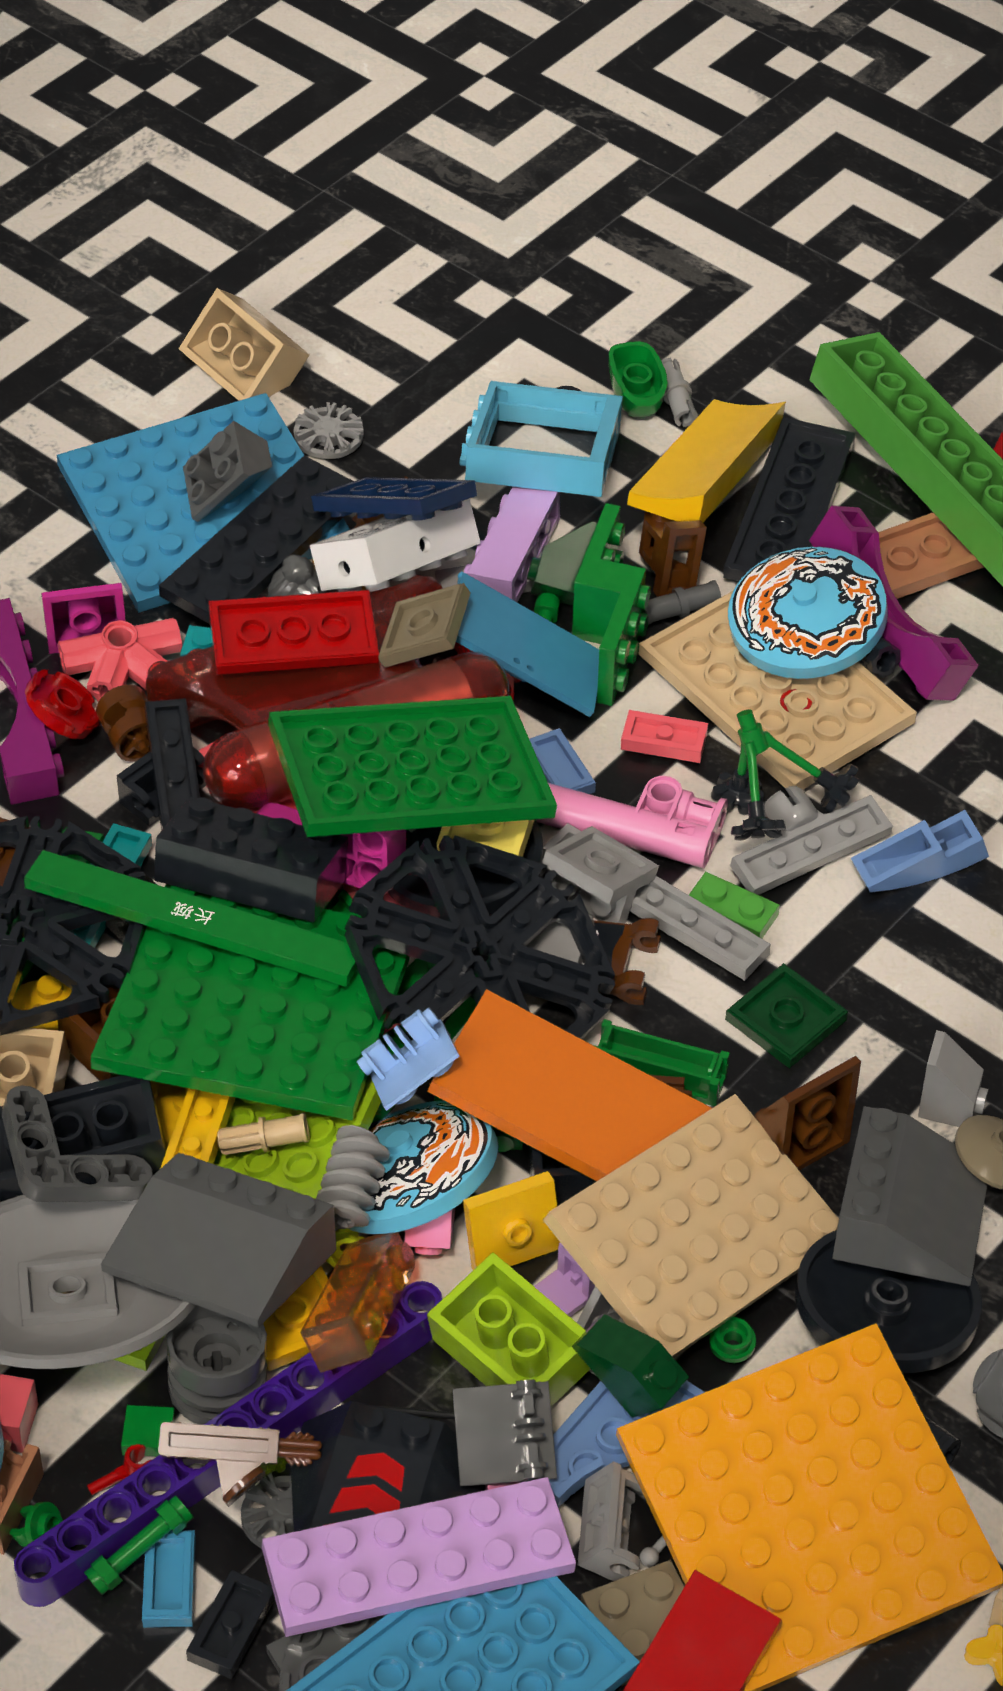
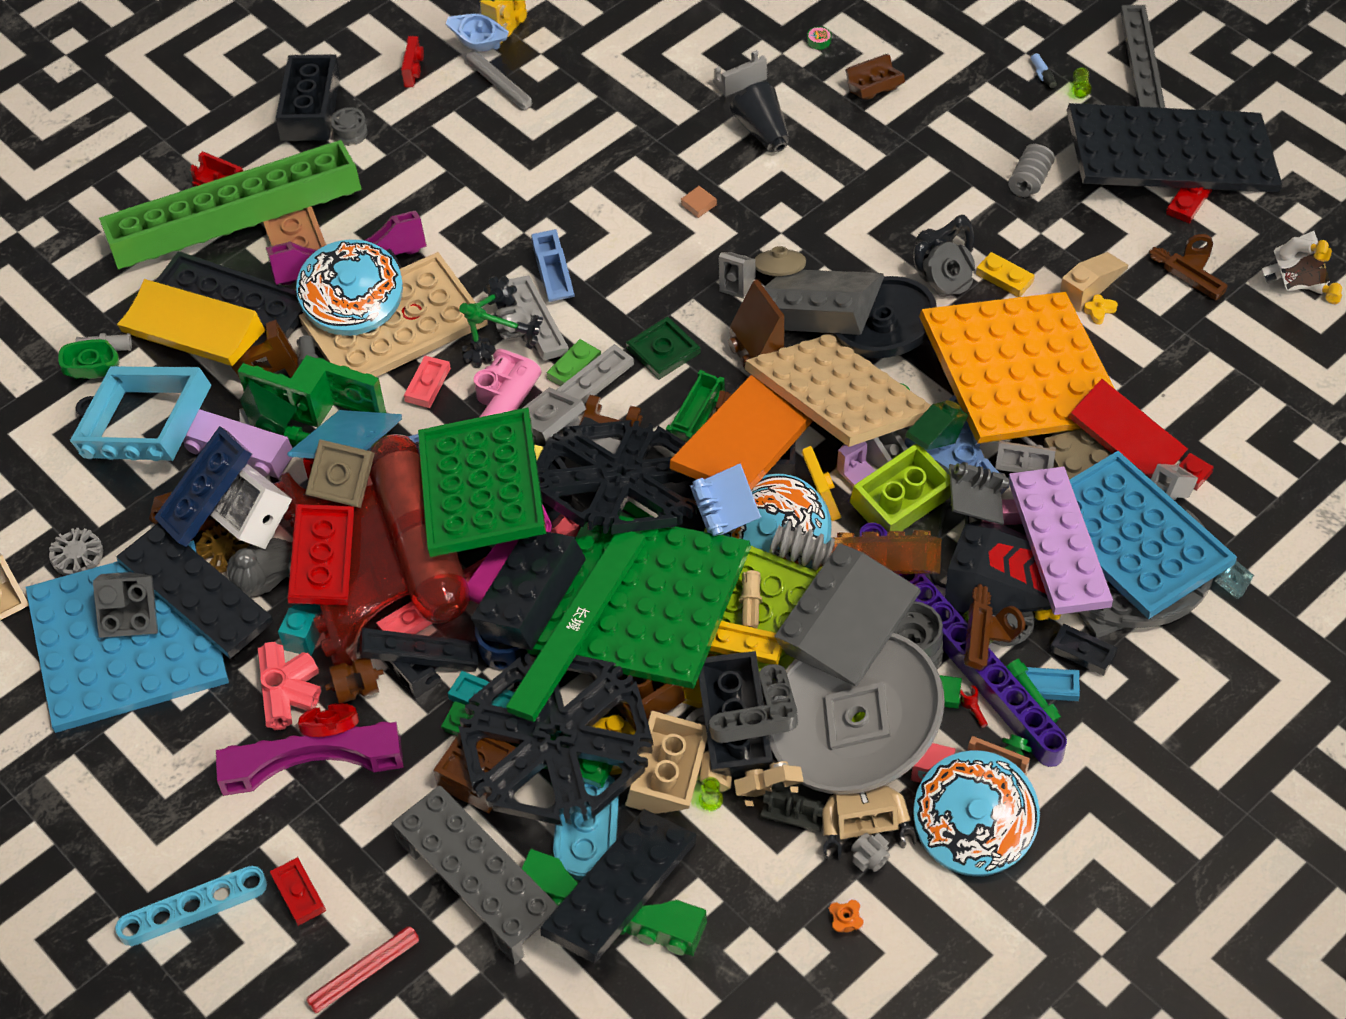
camera: 80 degrees left, 5 degrees up
(81, 612) = (237, 705): dark pink slope -> none

